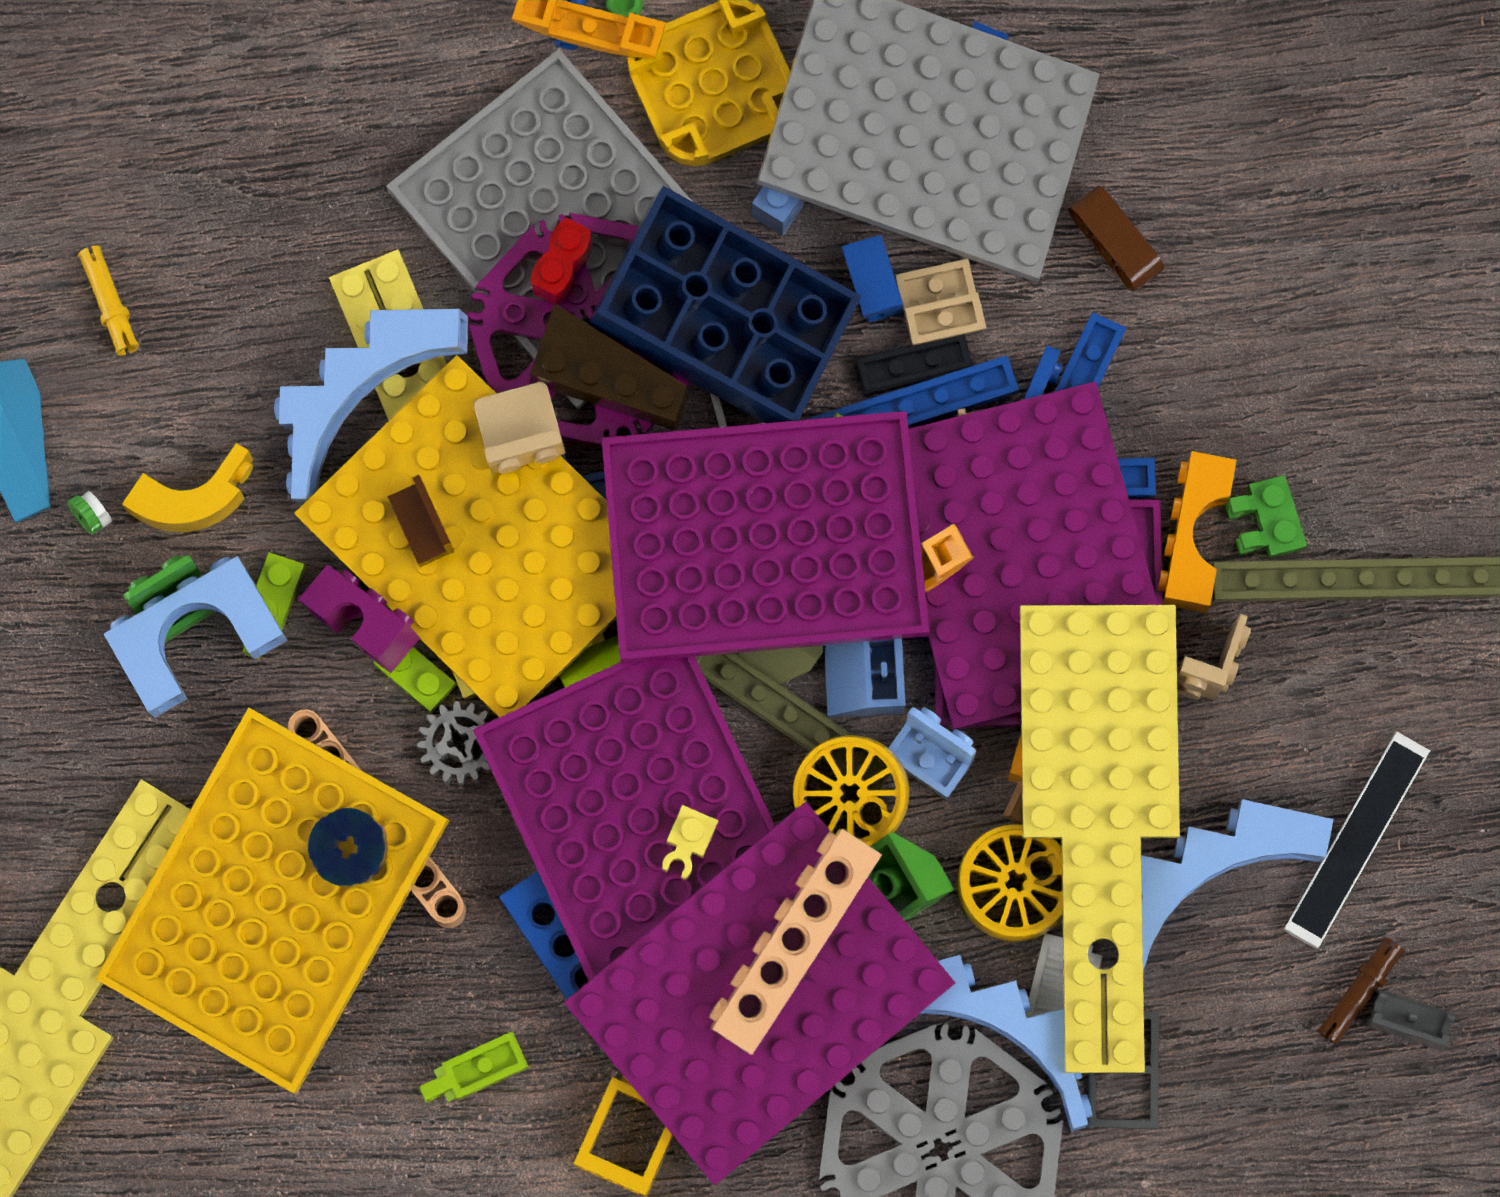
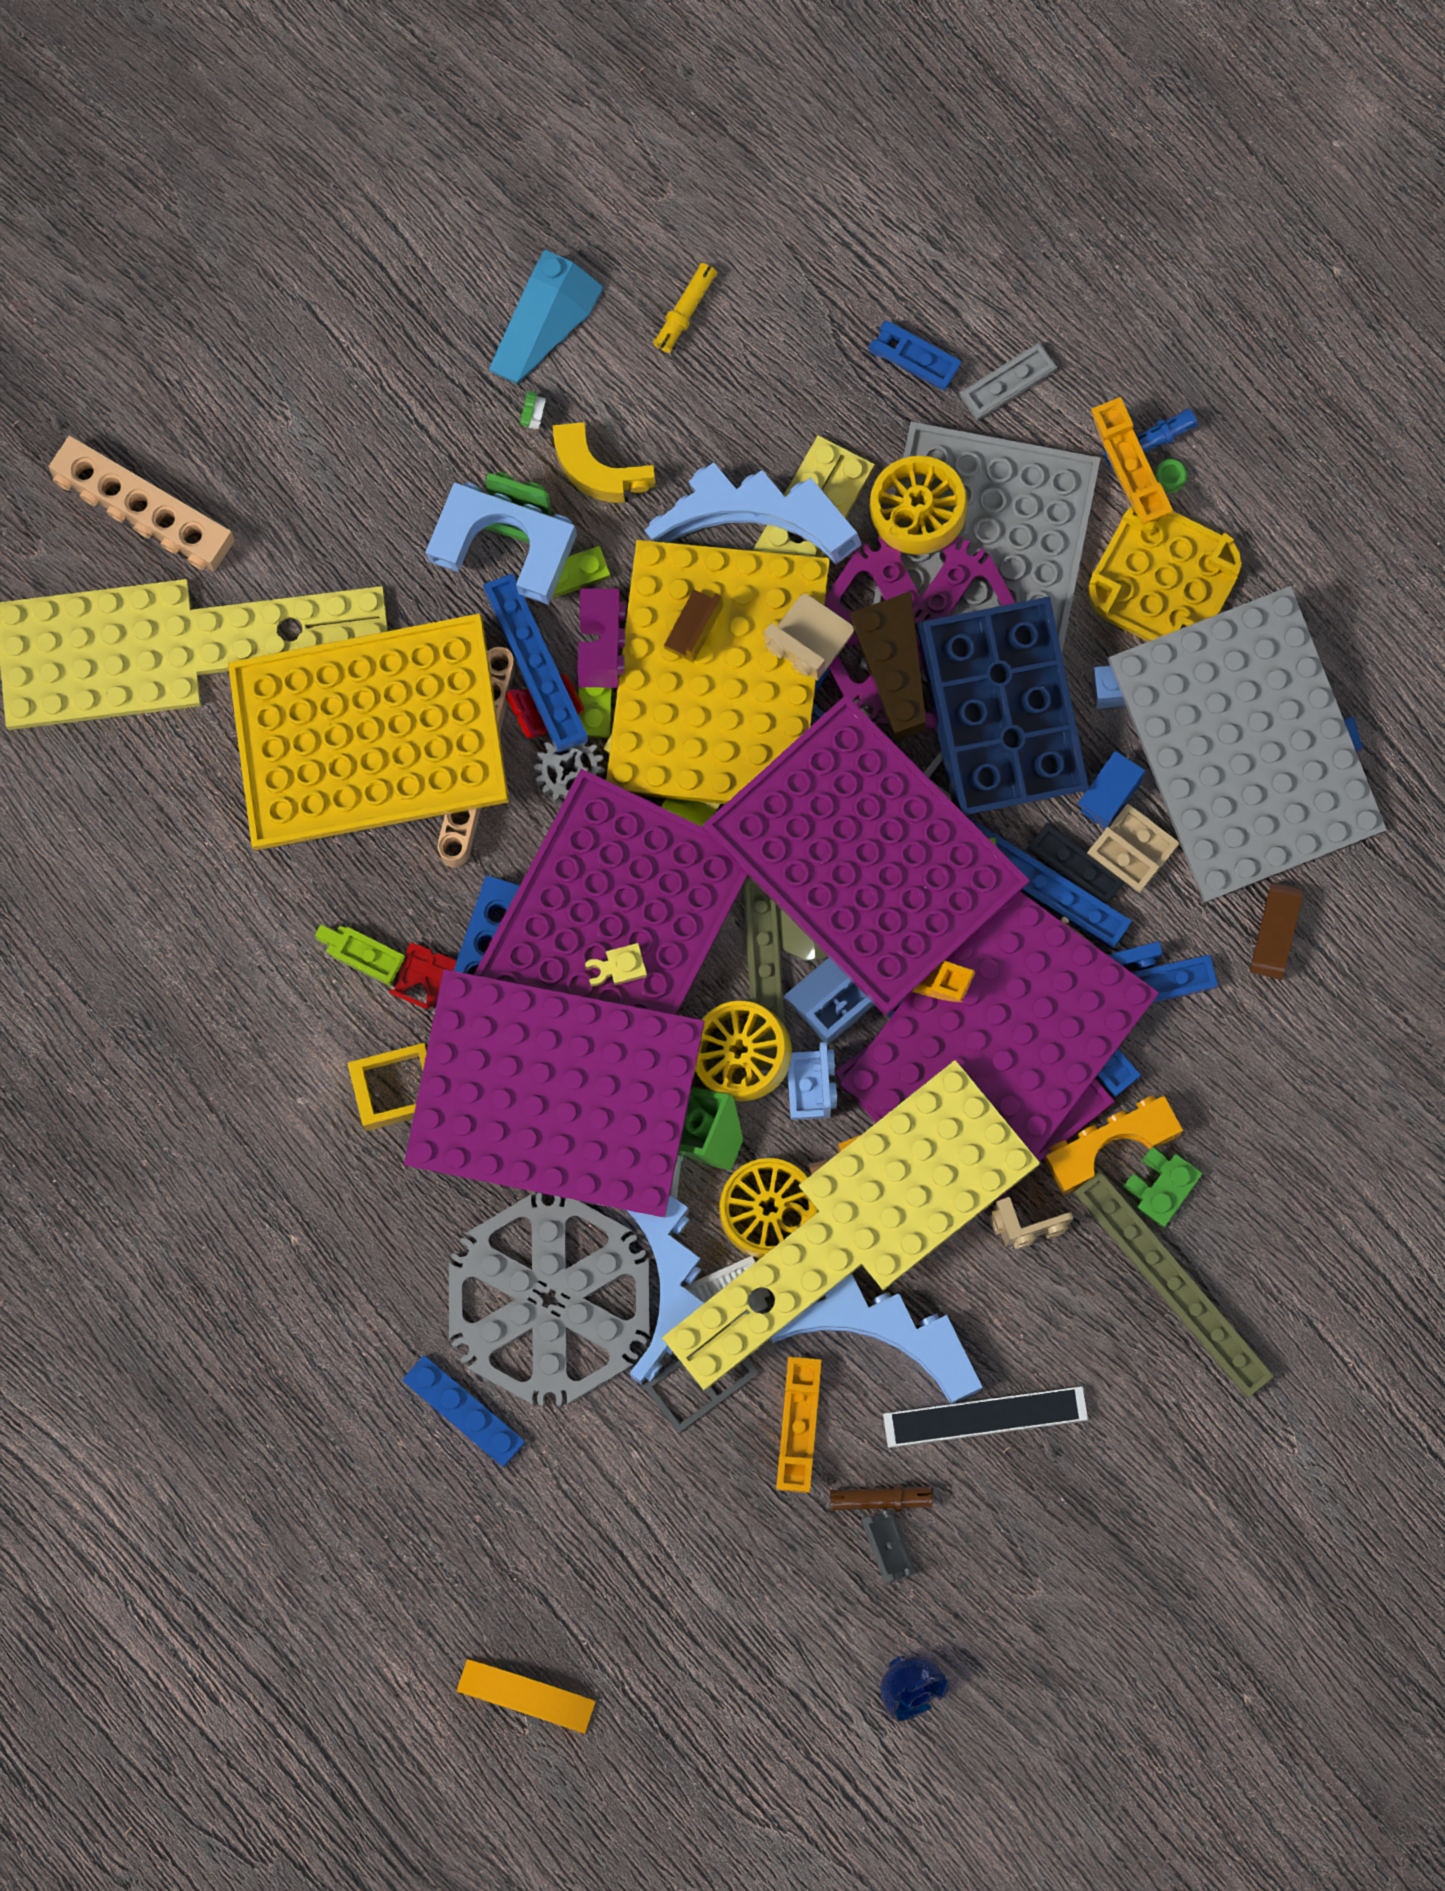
camera: 55 degrees right, 0 degrees up
(326, 134) = (915, 355): none -> blue plate
(333, 695) = (535, 663): none -> blue plate
(337, 827) = (419, 742): clear blue plate -> none
(367, 734) = (527, 712): none -> red piece
(418, 74) = (1008, 381): none -> light grey tile
(496, 273) = (906, 538): none -> yellow piece
(543, 1020) = (422, 968): none -> red piece
(567, 254) = (955, 572): red brick -> none
(858, 862) = (517, 1102): light nougat brick -> none
(1237, 1013) = (799, 1425): none -> light orange slope

